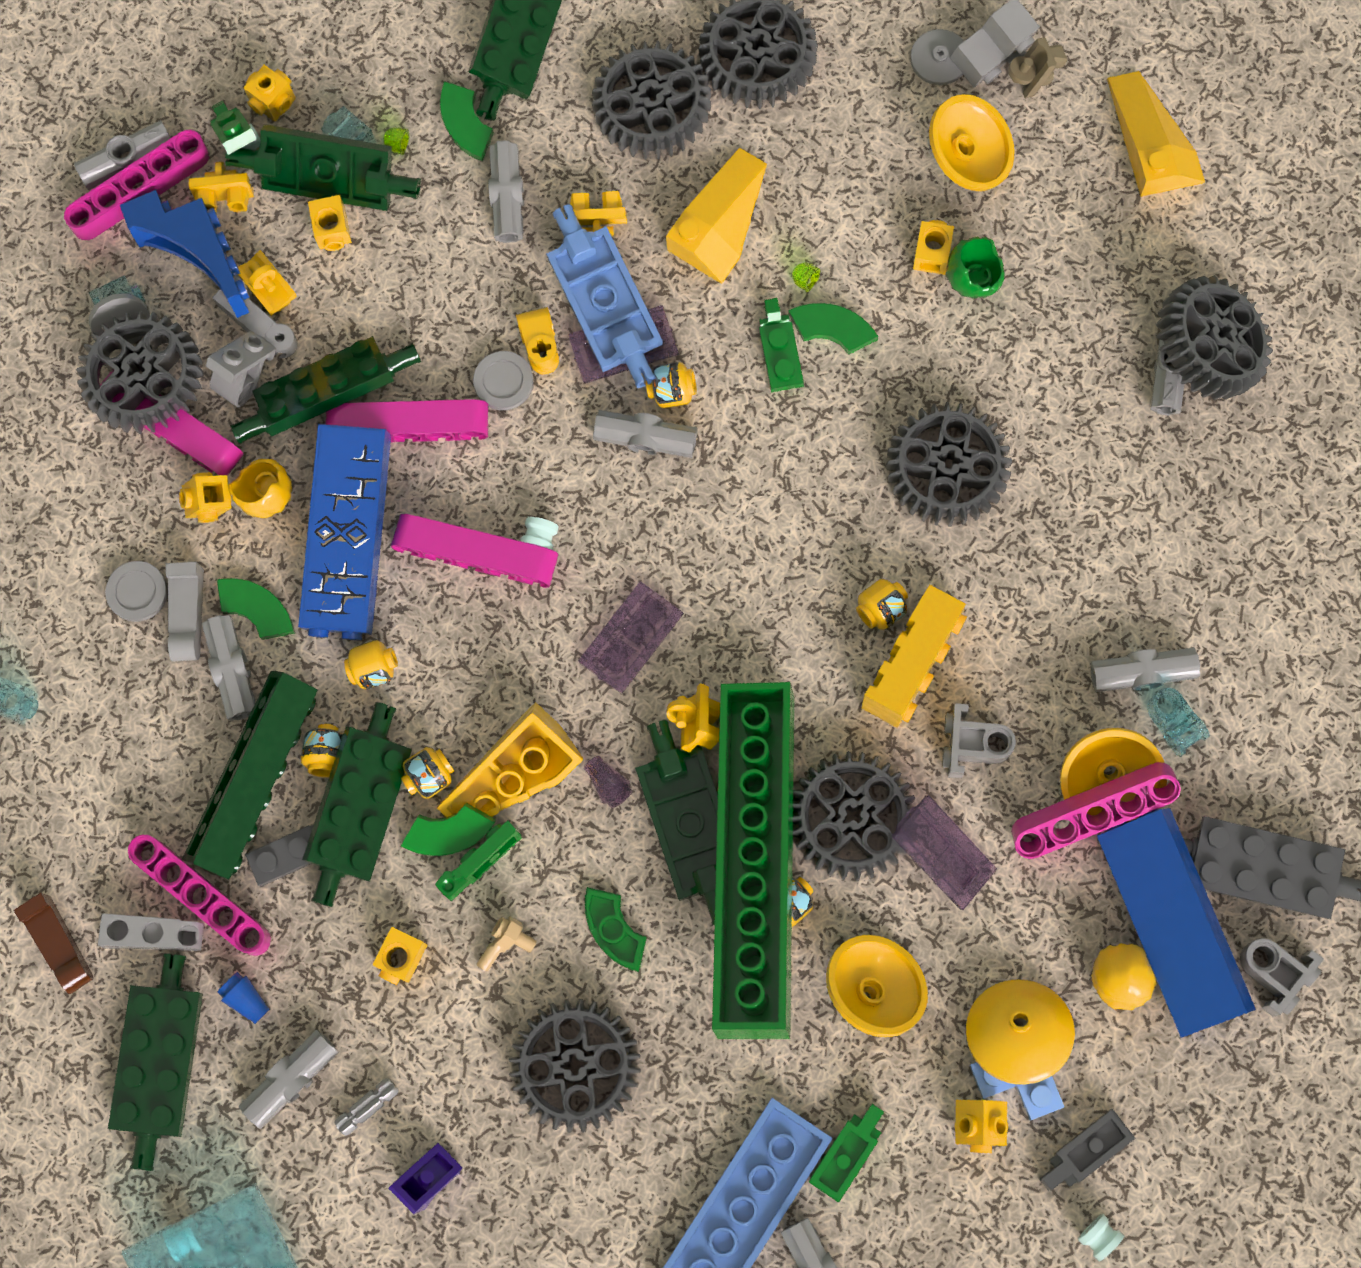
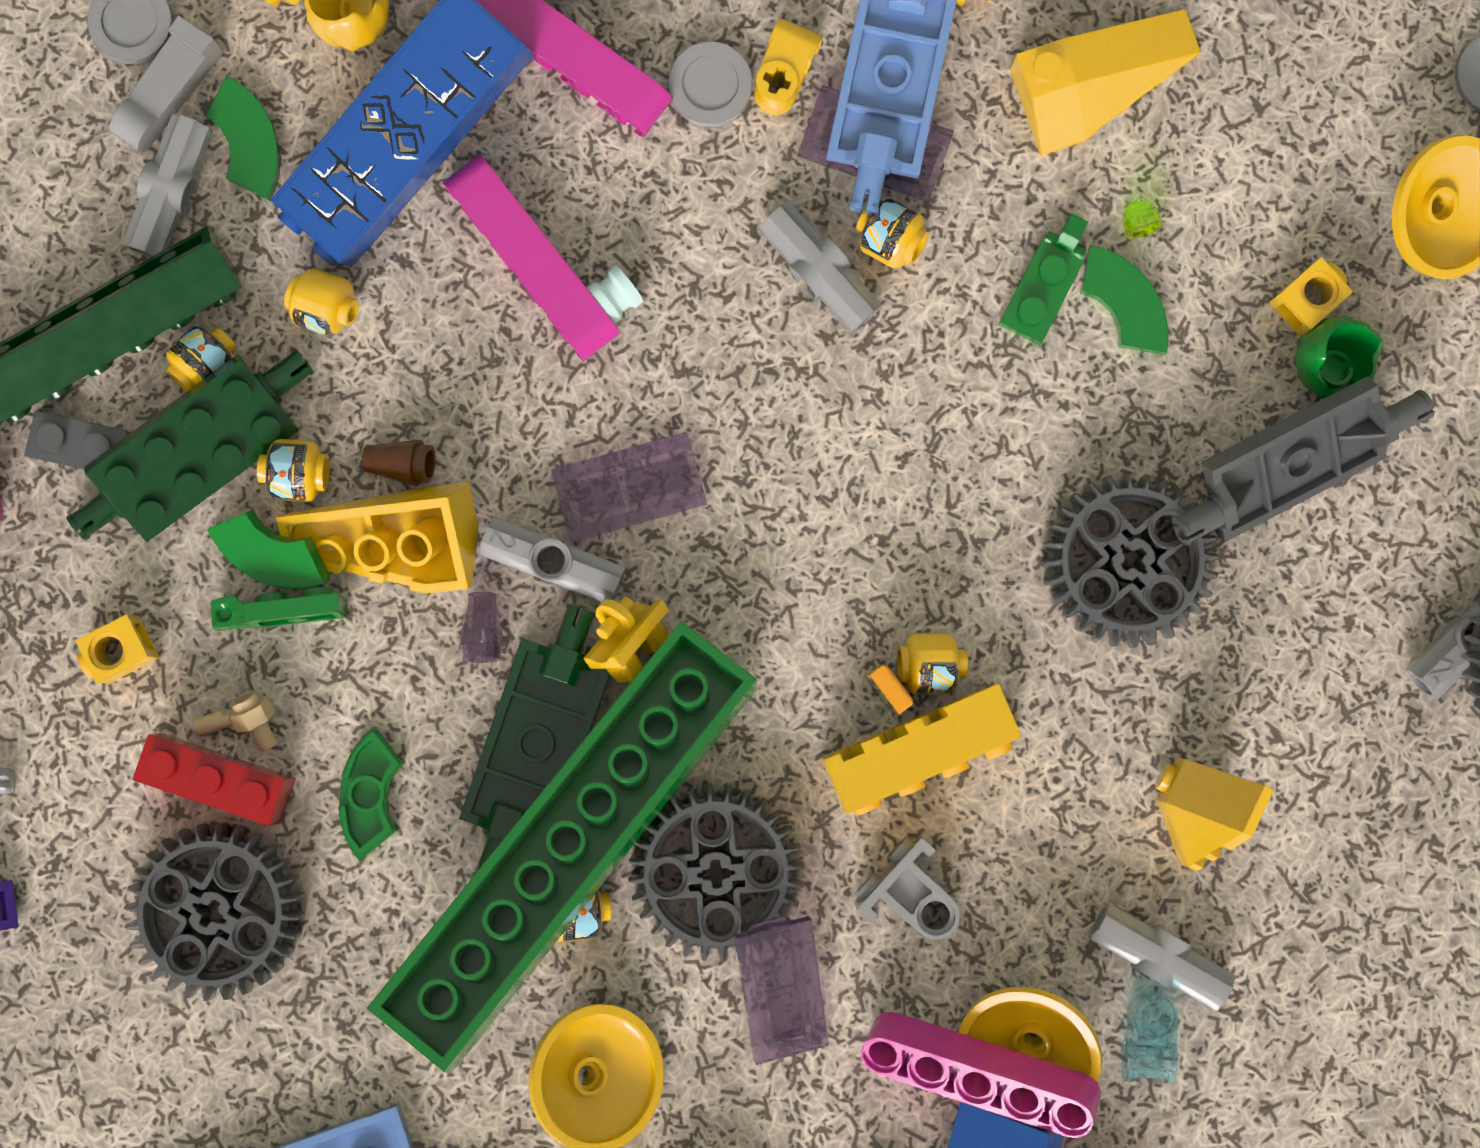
camera: 30 degrees right, 10 degrees up
(486, 721) = (400, 461): none -> reddish brown cone
(515, 986) = (214, 779): none -> red brick
(596, 716) = (523, 551): none -> light grey piece
(869, 633) = (889, 689): none -> light orange tile
(997, 337) = (1298, 459): none -> dark grey plate
(1099, 562) = (1207, 810): none -> yellow wedge

